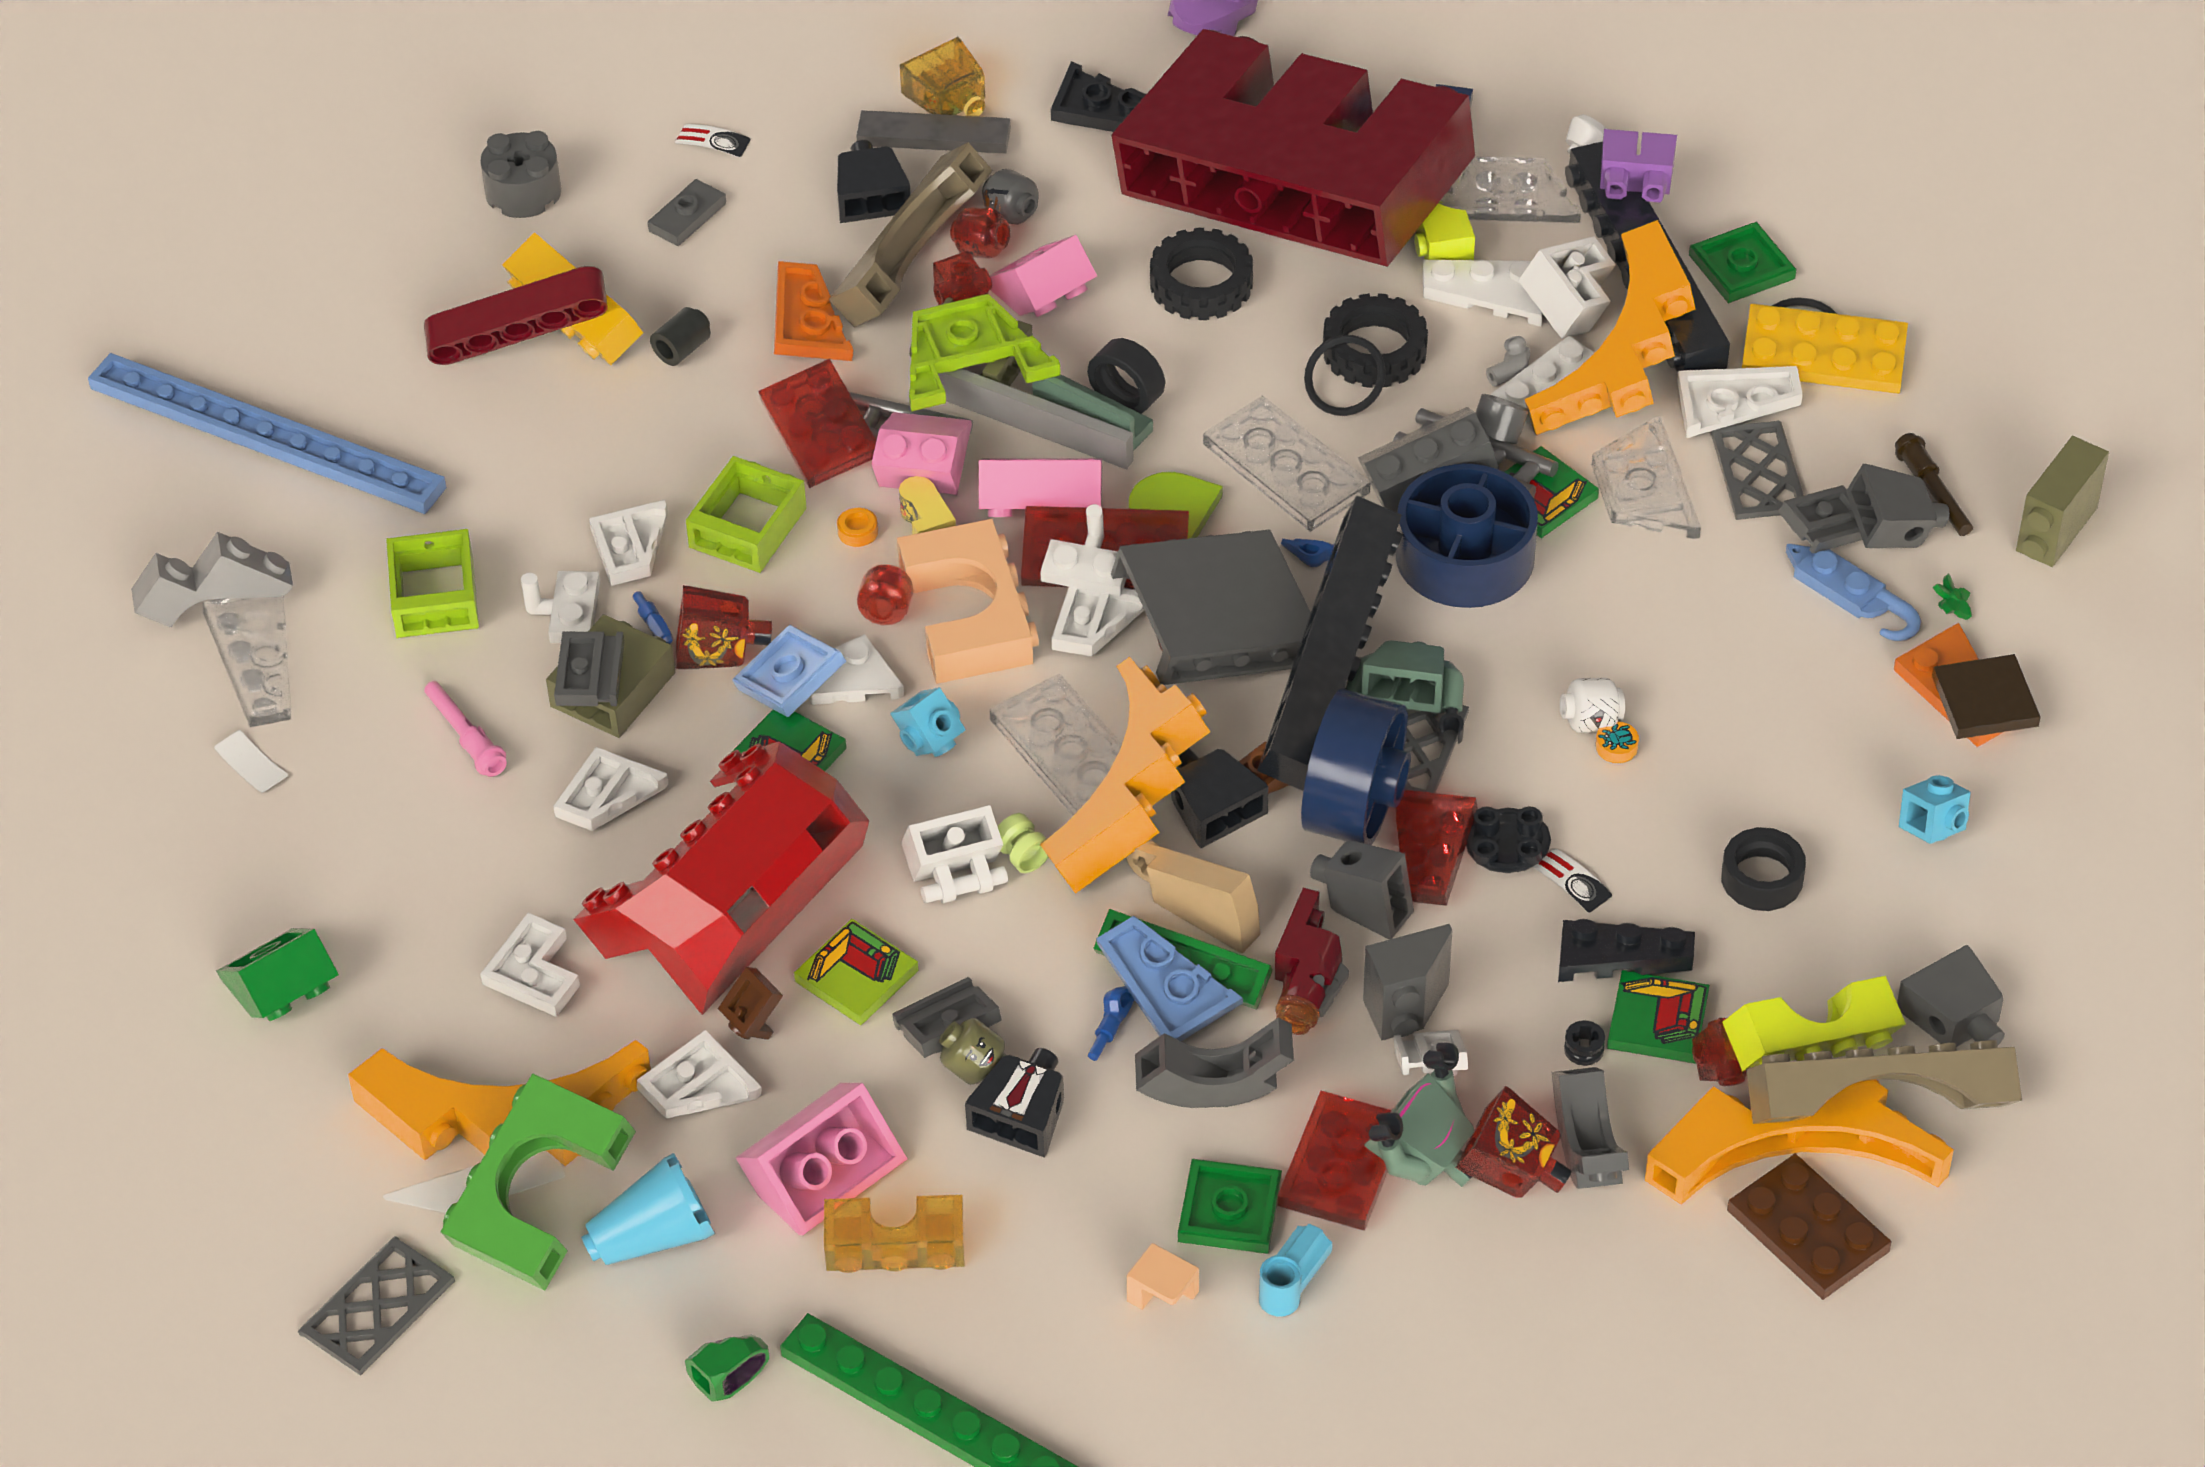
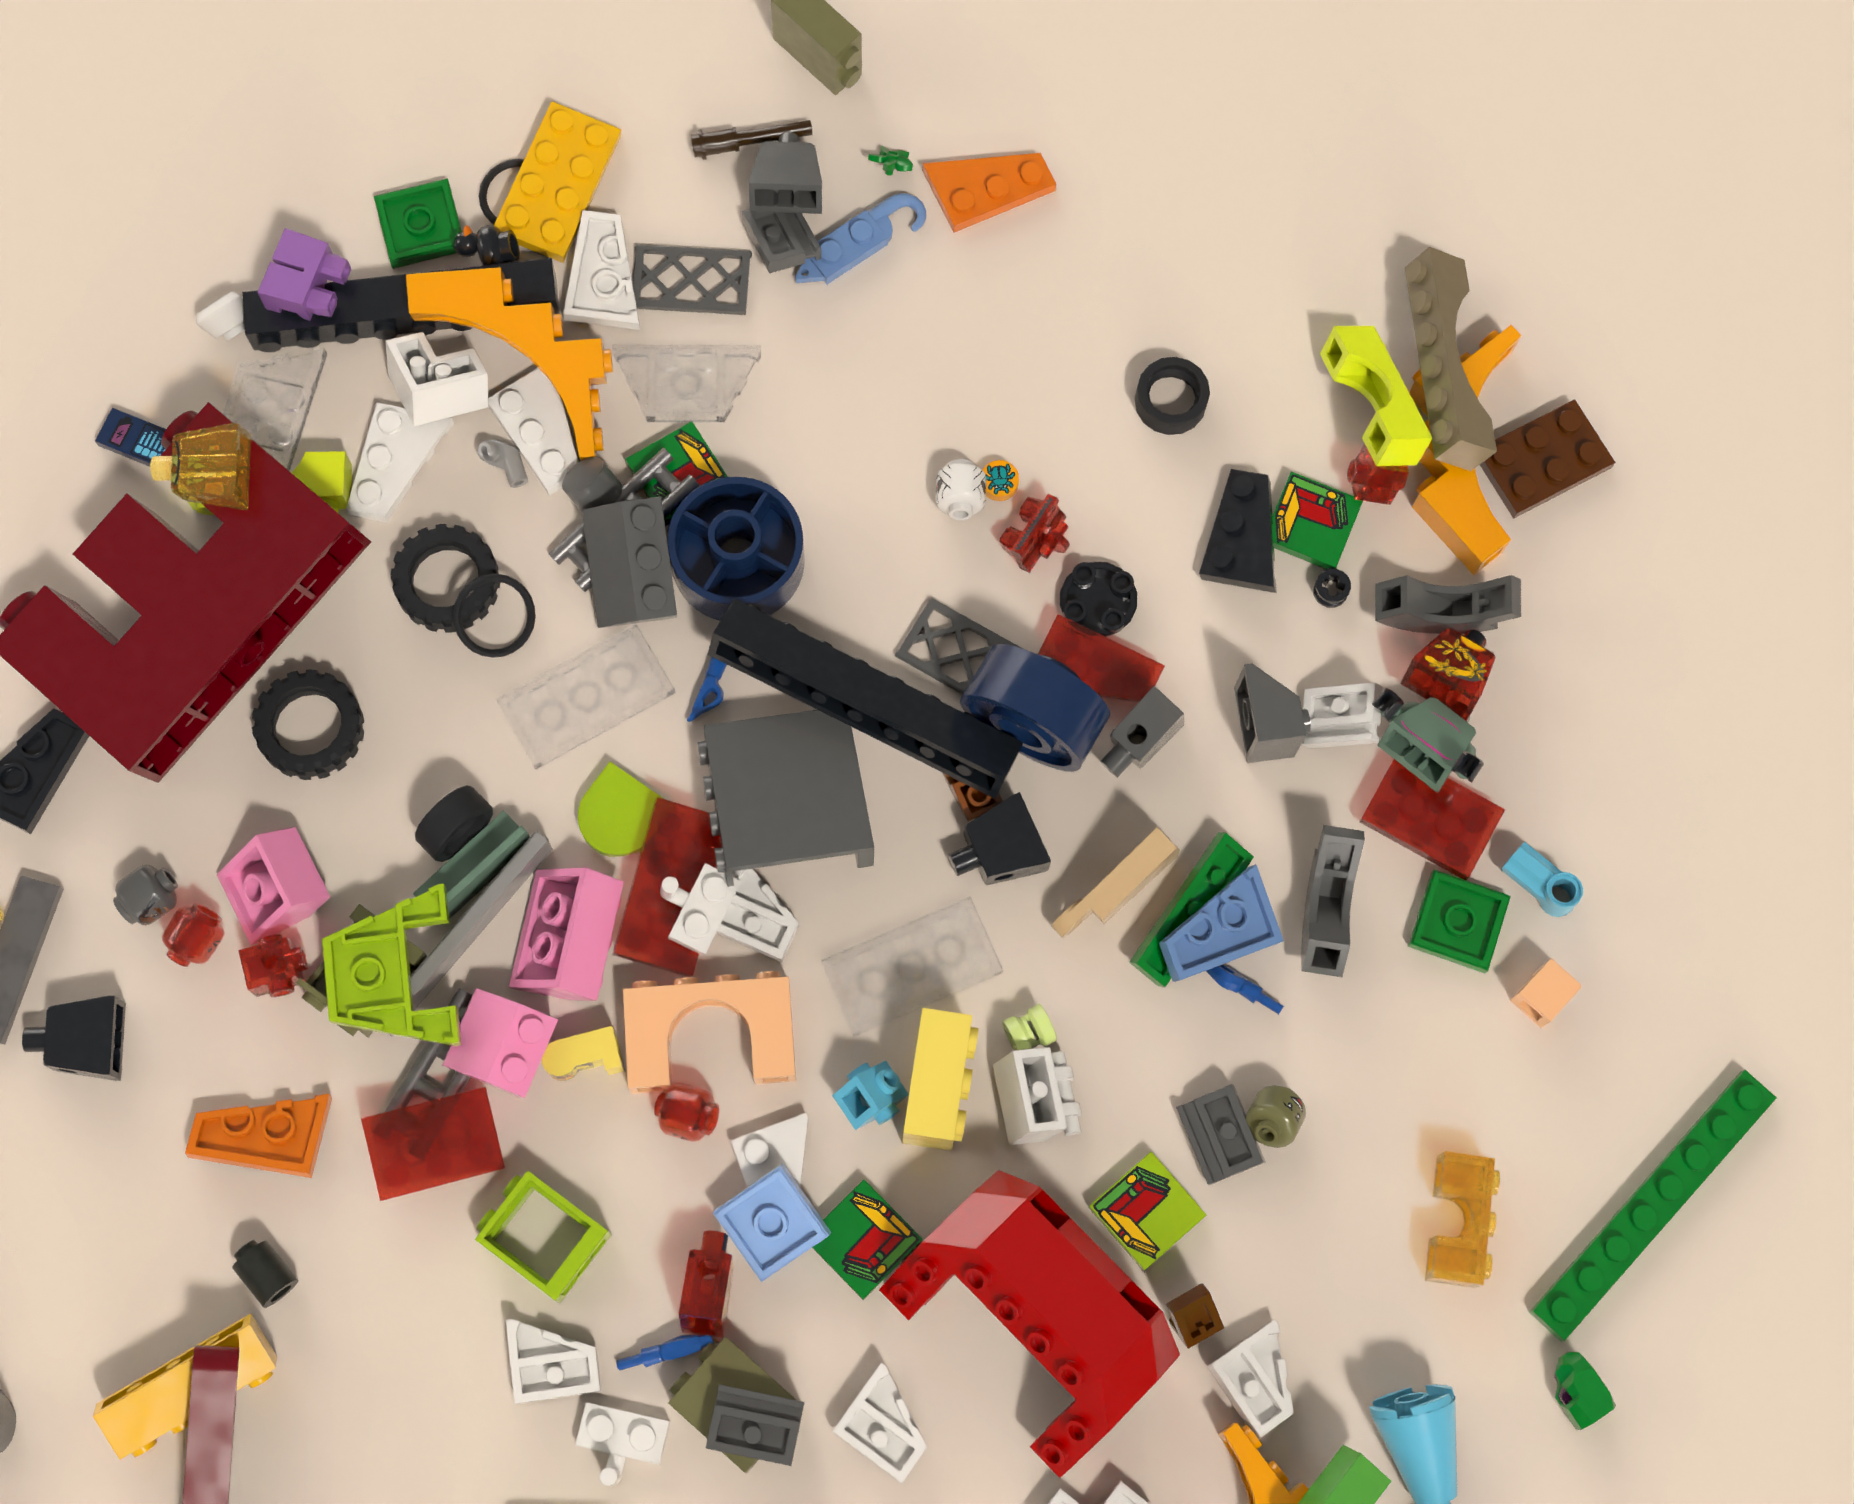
camera: 85 degrees left, 25 degrees up
(687, 212) = (64, 1243): dark grey plate -> none
(820, 1154) = (1365, 1275): bright pink slope -> none
(857, 527) = (575, 1126): light orange tile -> none
(880, 271) = (121, 959): dark tan arch -> none
(951, 763) = (940, 1079): none -> light yellow brick
(1019, 1102) = (1331, 1082): black torso -> none
(1144, 772) = (940, 876): light orange arch -> none
(1308, 965) = (1216, 796): dark red plate -> none
(1403, 102) = (208, 466): none -> clear yellow torso
(1414, 677) = (909, 635): sand green torso -> none
(1564, 774) = (1041, 534): none -> clear red hips
(1574, 879) = (1147, 553): sticker -> none
(1730, 302) = (489, 242): none -> black animal
(1934, 809) = (1142, 239): medium azure brick -> none
(1953, 999) = (1342, 282): dark grey torso -> none
(1986, 696) = (1026, 163): dark brown tile -> none

